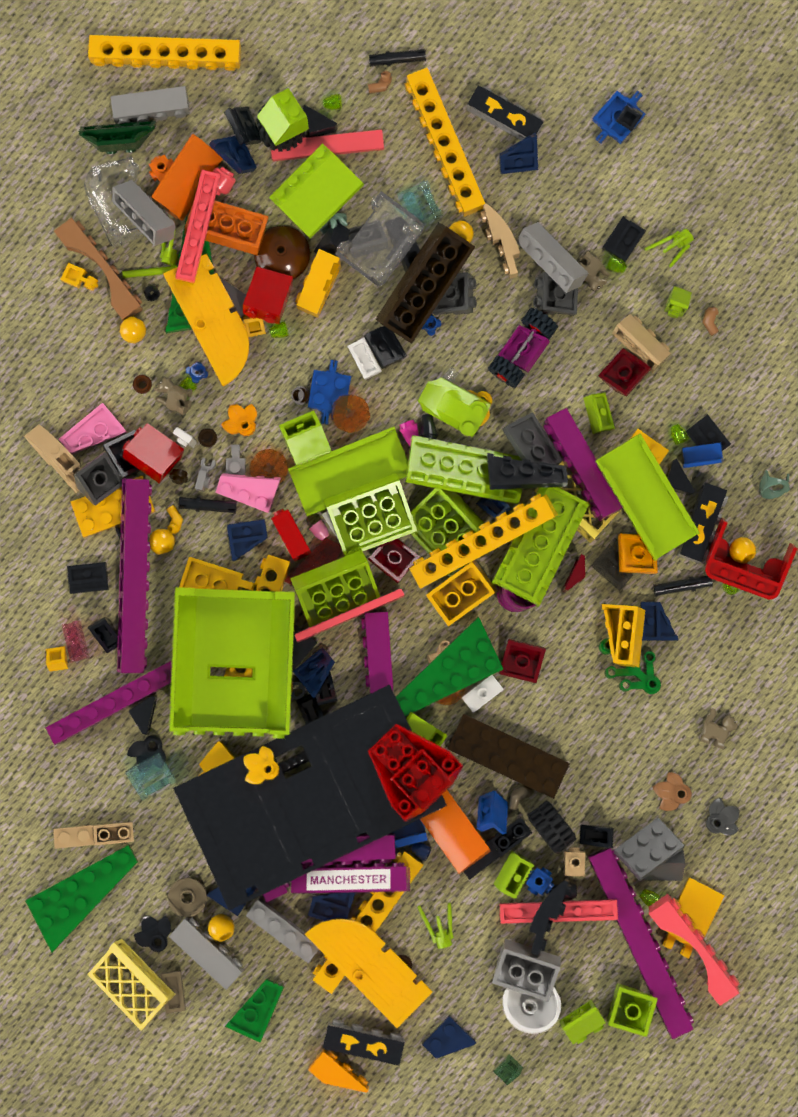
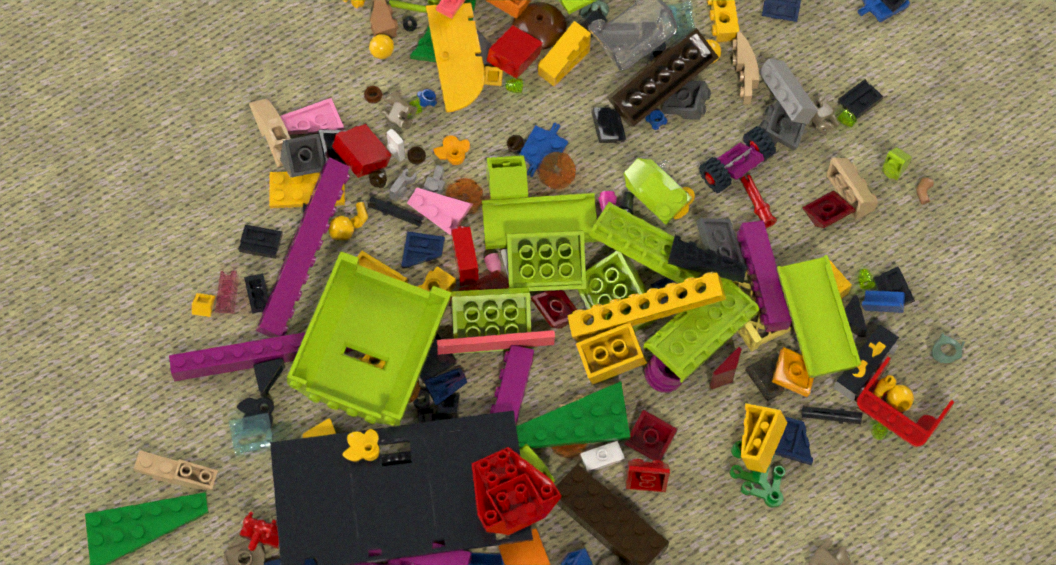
camera: 15 degrees right, 20 degrees down
(193, 866) = (260, 532): none -> red piece
(364, 358) = (585, 130): white plate -> none
(530, 701) = (647, 475): none -> red slope
(560, 391) = (761, 208): none -> red pin
(599, 413) = (793, 239): lime slope -> none
(682, 239) = (914, 114): lime plant -> none
(725, 543) = (884, 385): none -> yellow arm

